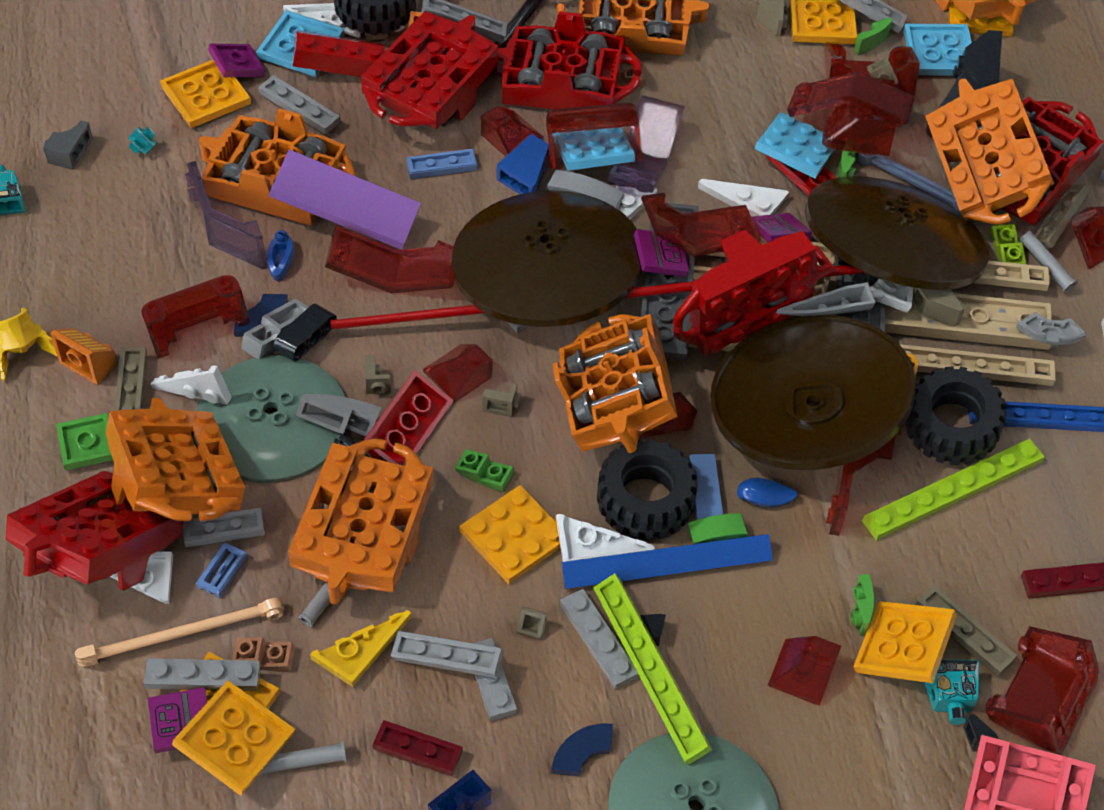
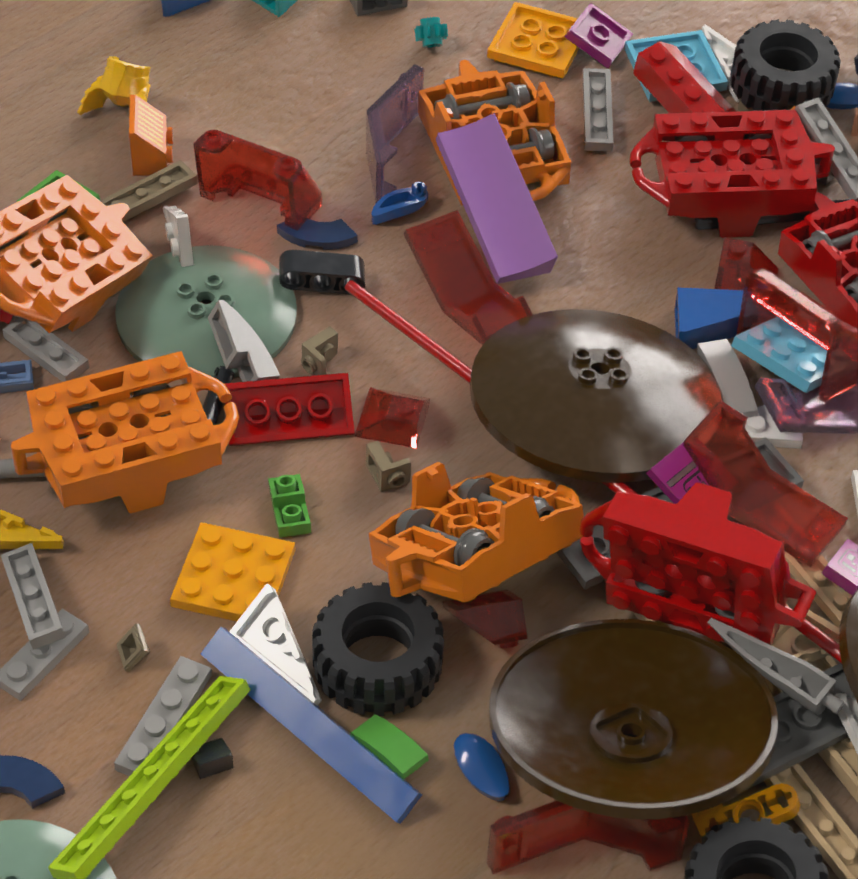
camera: 55 degrees right, 5 degrees down
(260, 339) = (308, 240): light grey slope -> none
(441, 163) = (644, 253): medium blue tile -> none
(708, 492) = (442, 706): medium blue tile -> none

